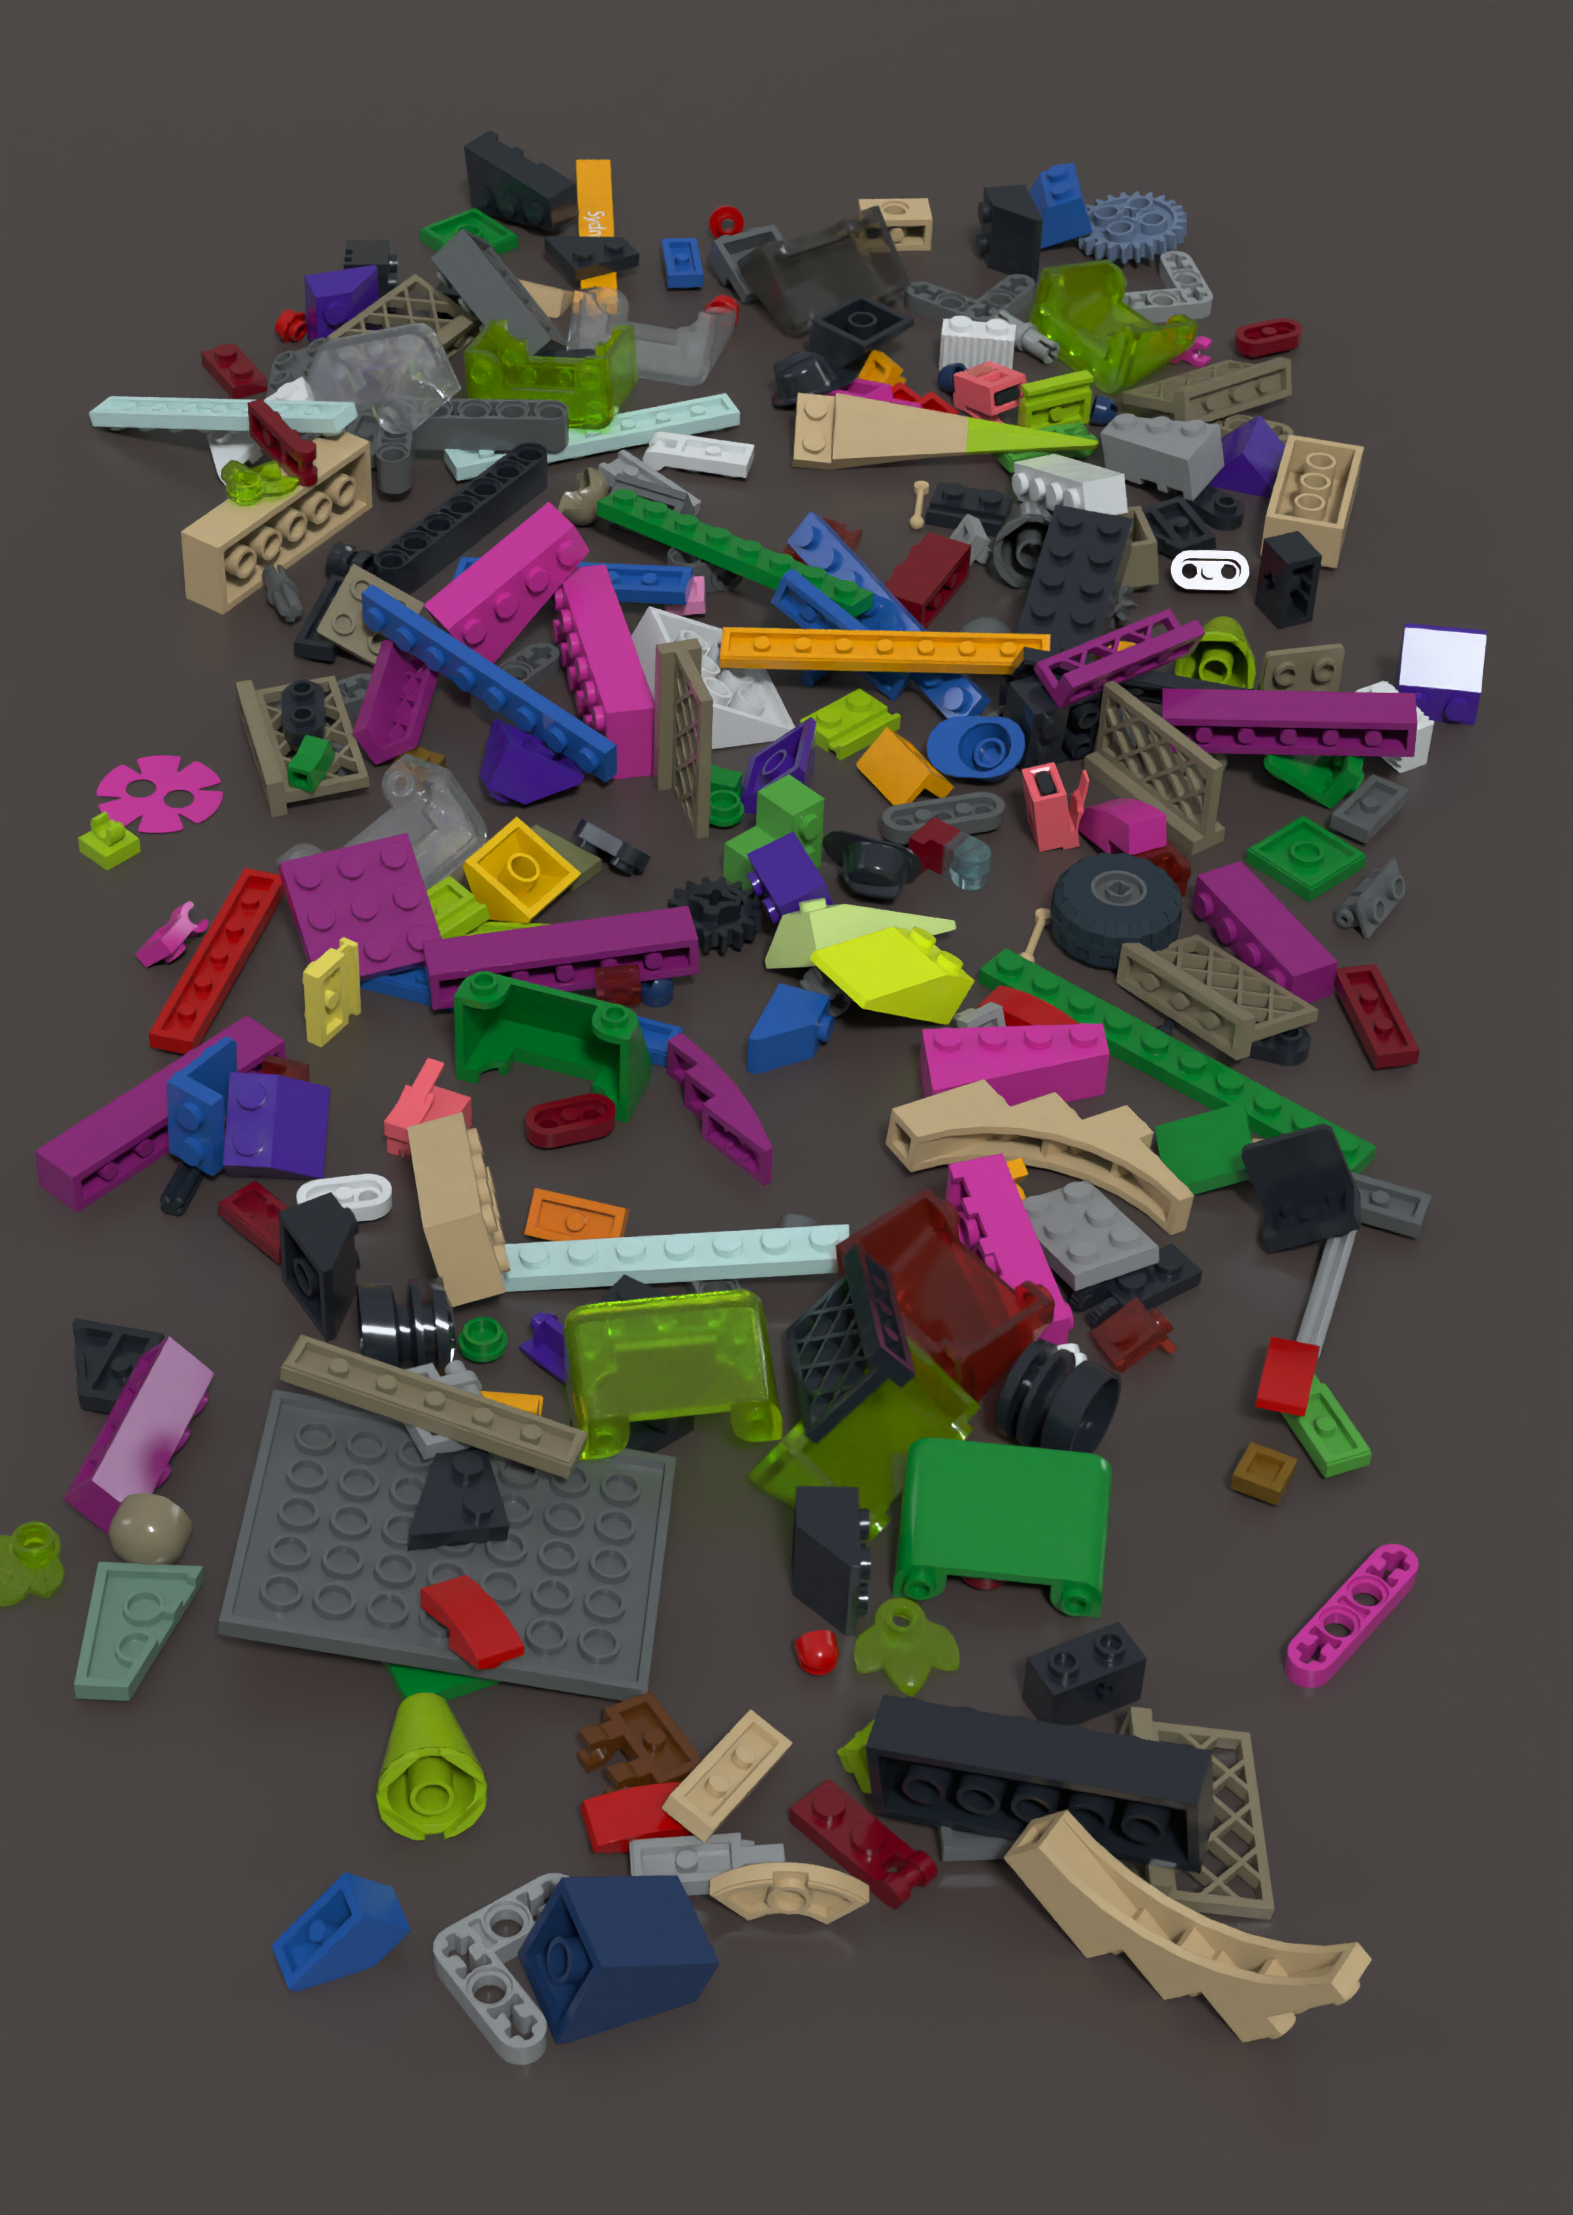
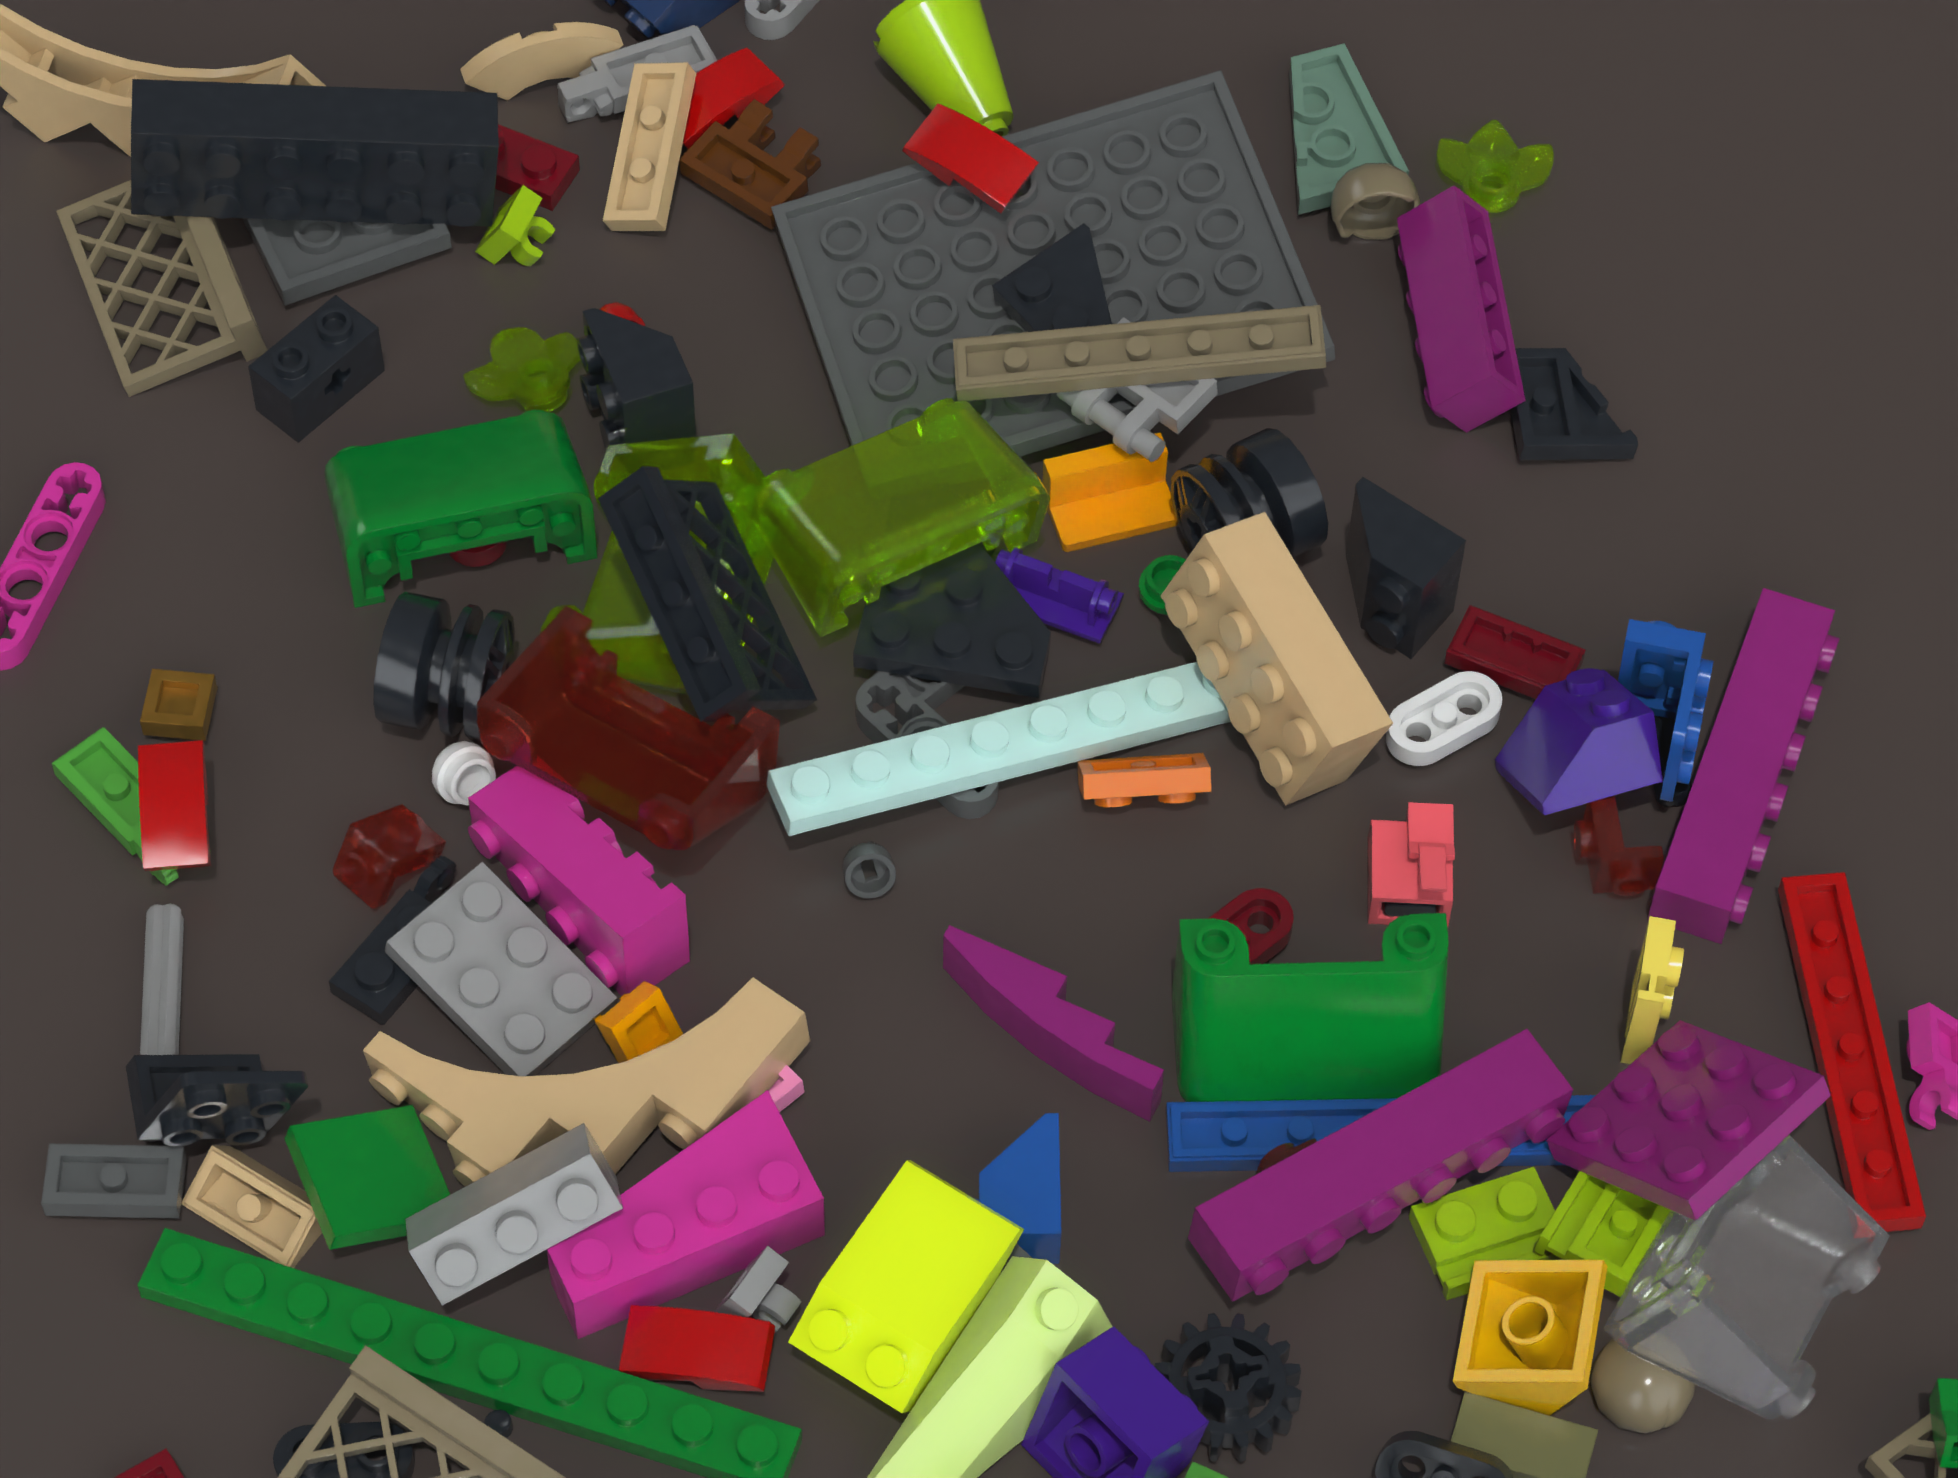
camera: 160 degrees right, 15 degrees up
(1124, 1074) = (513, 1214): none -> light grey brick

